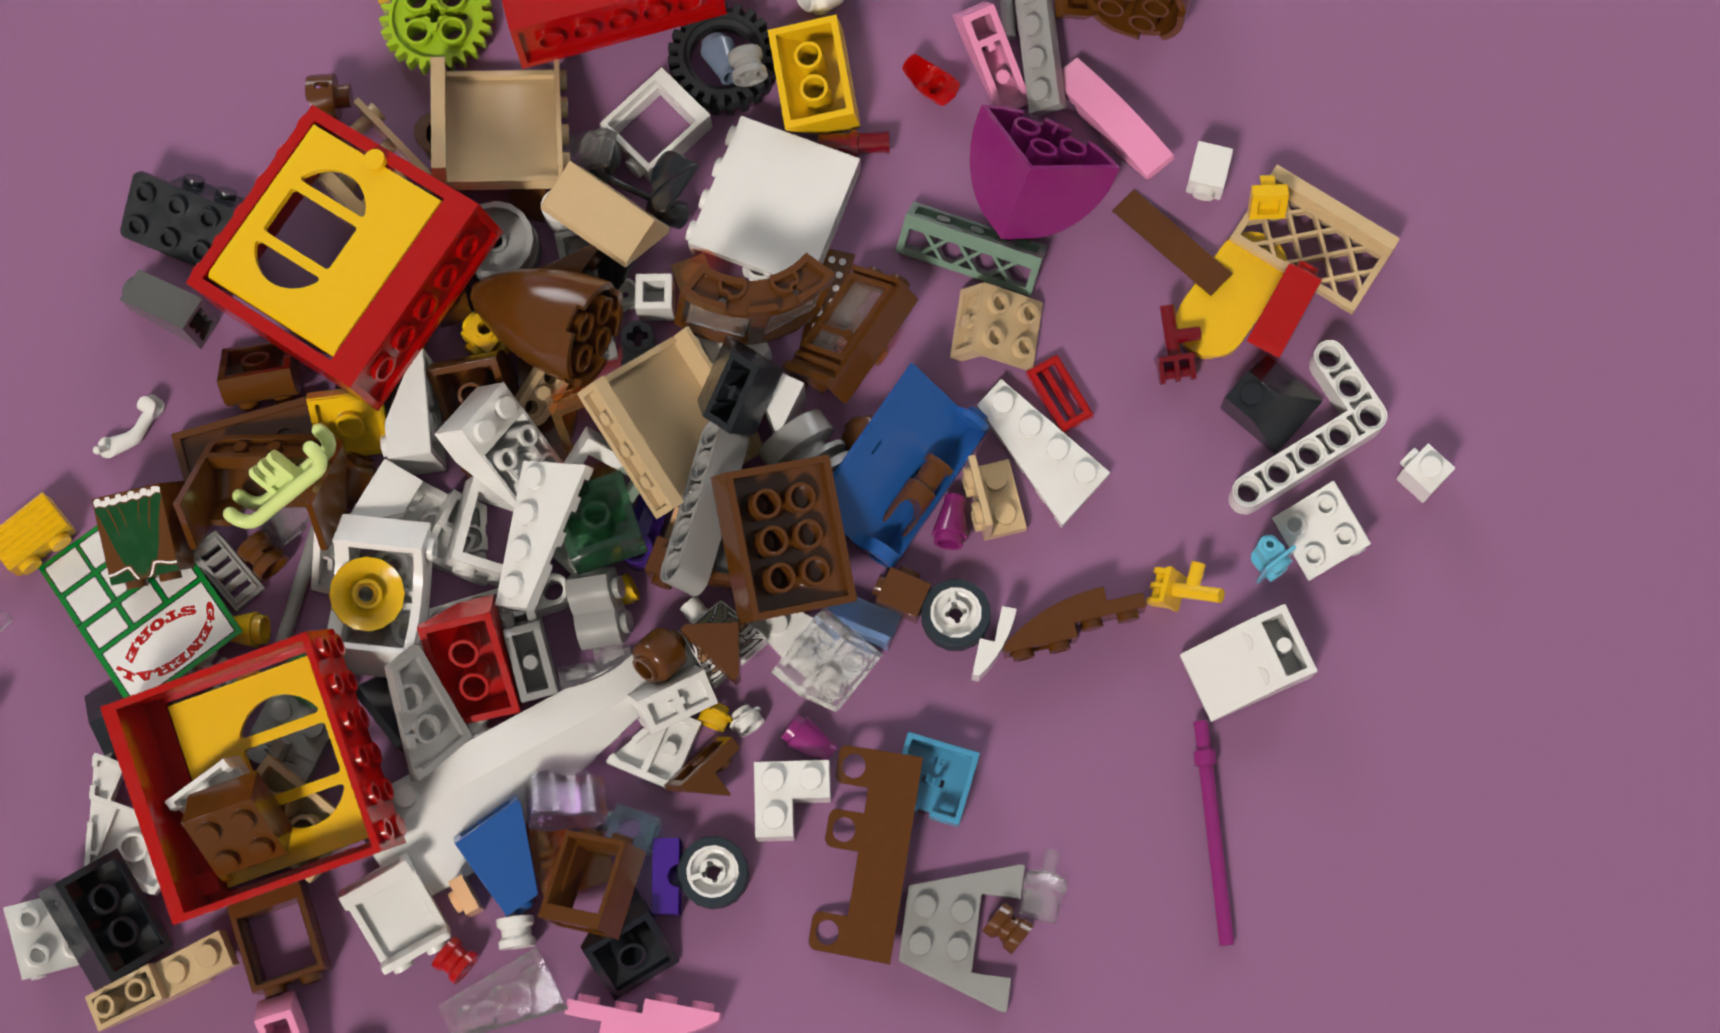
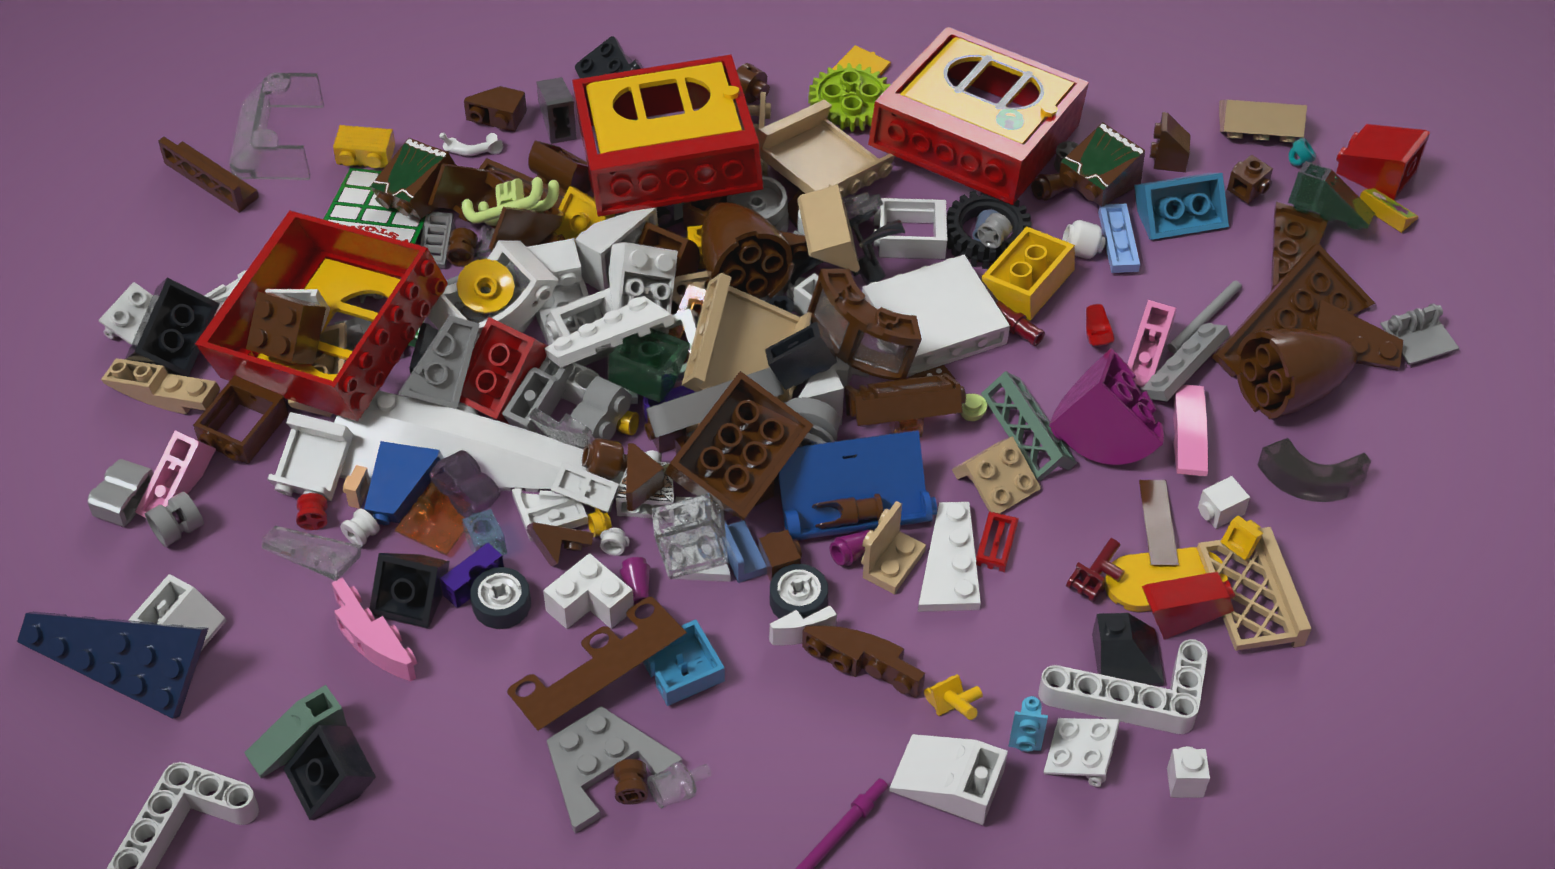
camera: 40 degrees right, 25 degrees down
(109, 361) = (497, 108): none -> reddish brown slope
(568, 874) = (426, 526): reddish brown window -> none
(907, 268) = (974, 407): none -> yellowish green plate
(1242, 82) = (1307, 479): none -> clear smoke arch

